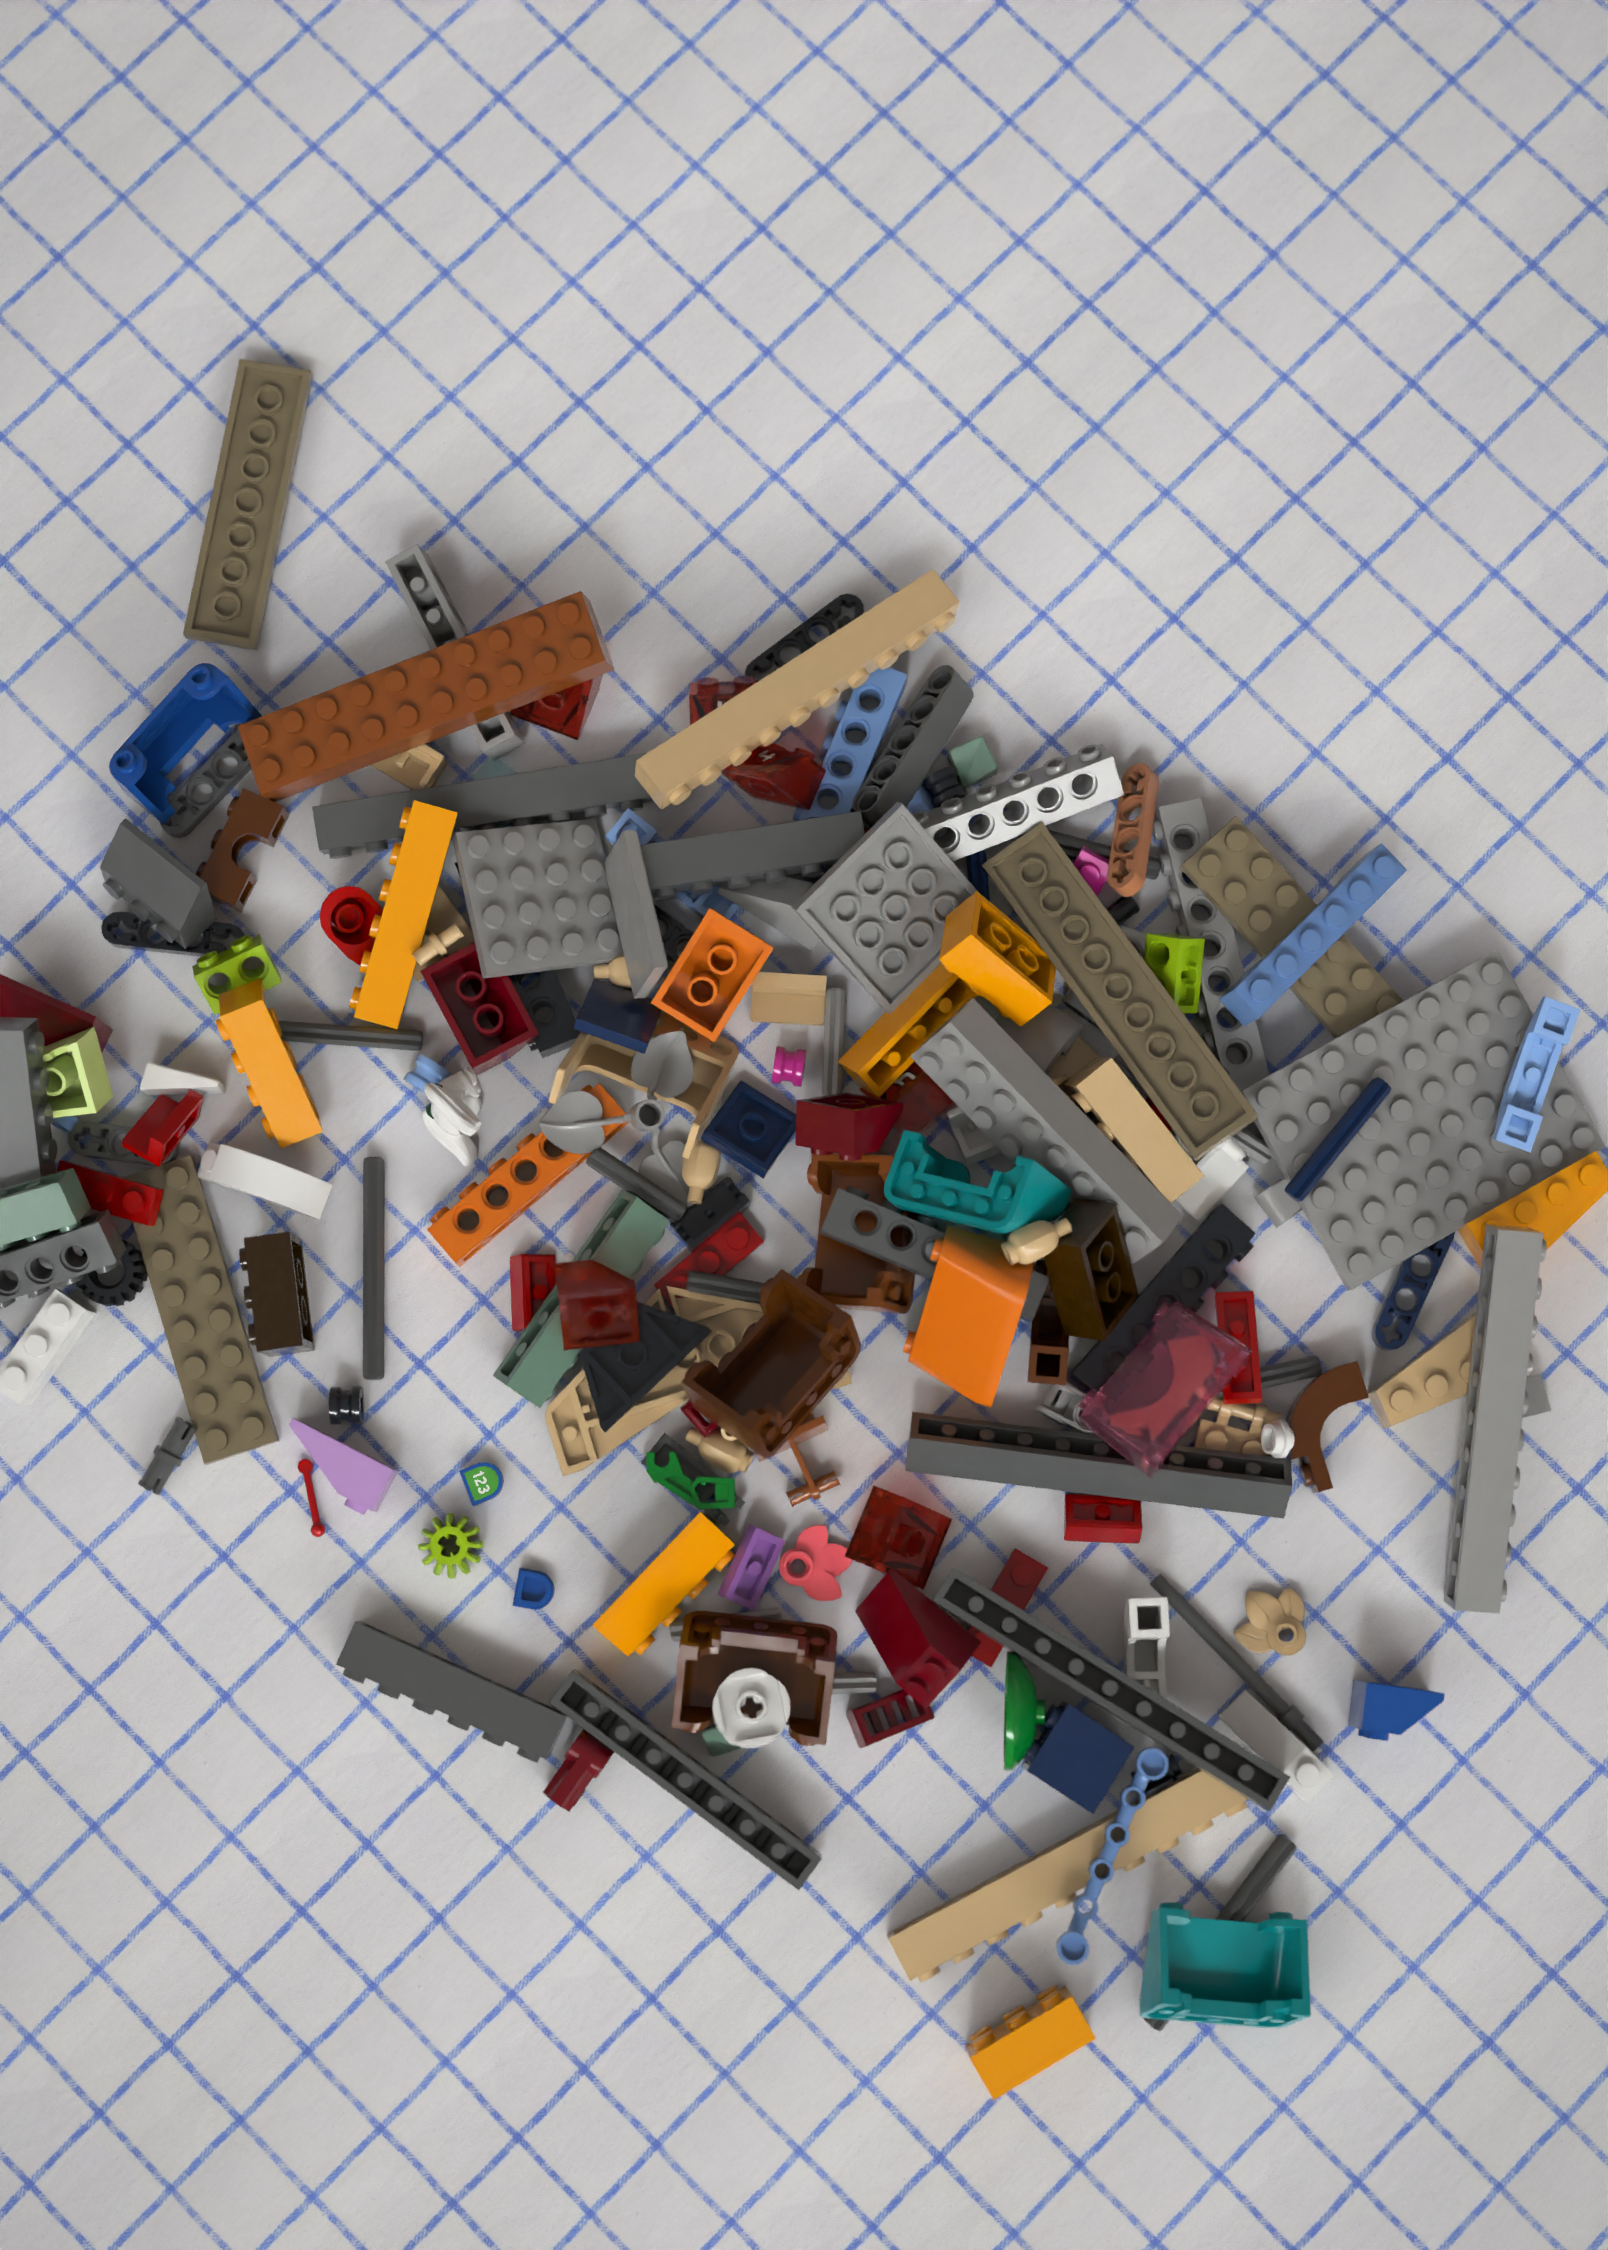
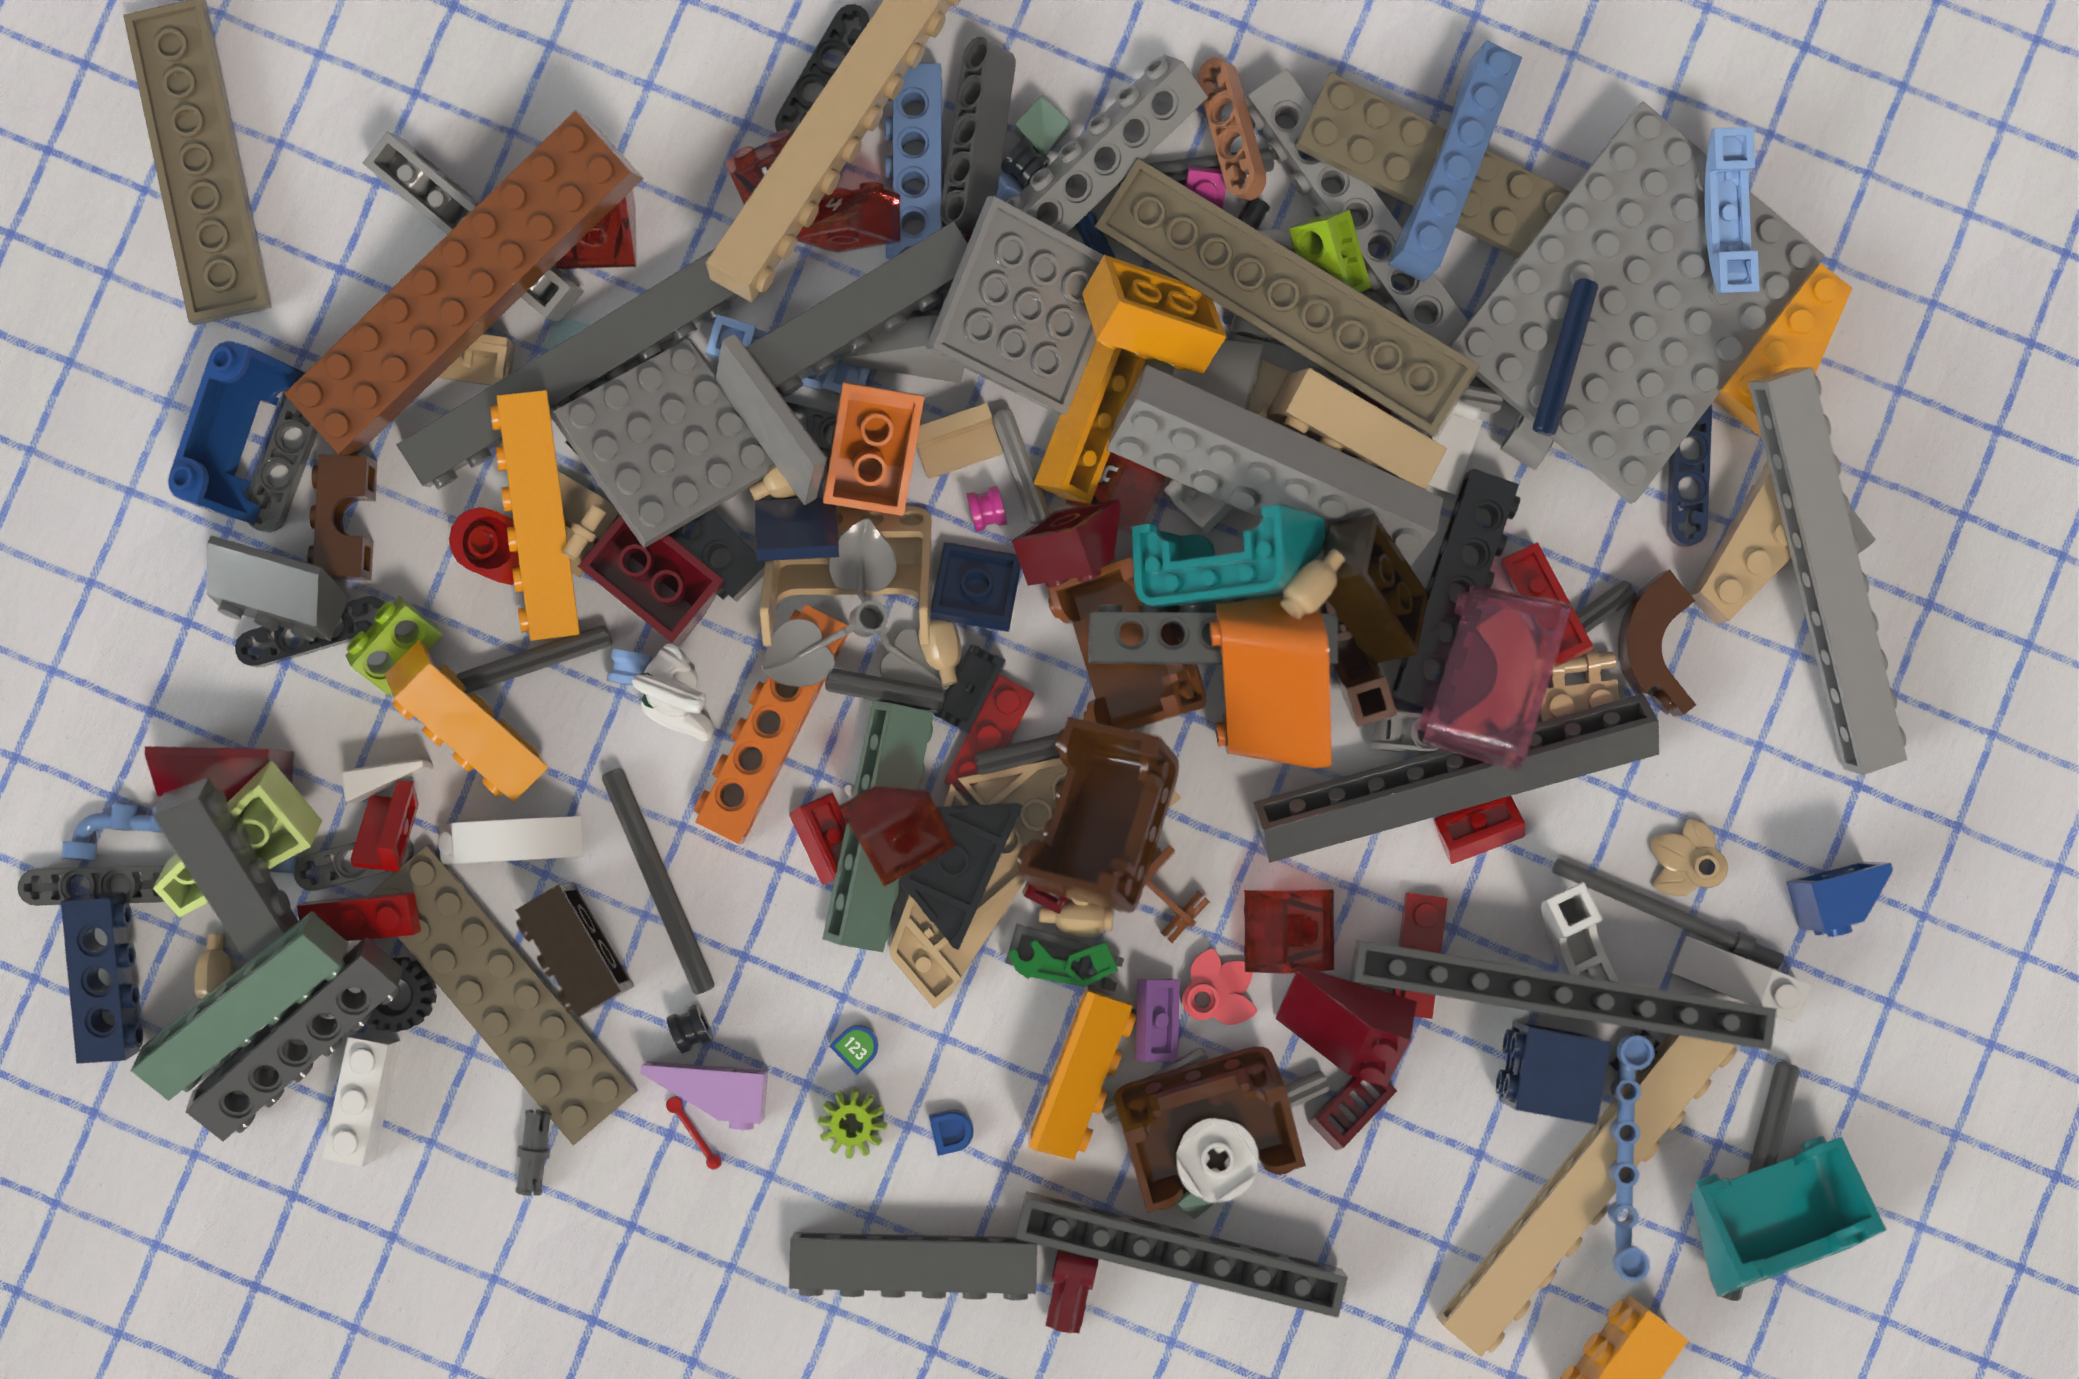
camera: 25 degrees left, 5 degrees up
(1021, 1711) = (1481, 1053): green dish -> none
(1277, 1438) = (1623, 679): white plate -> none

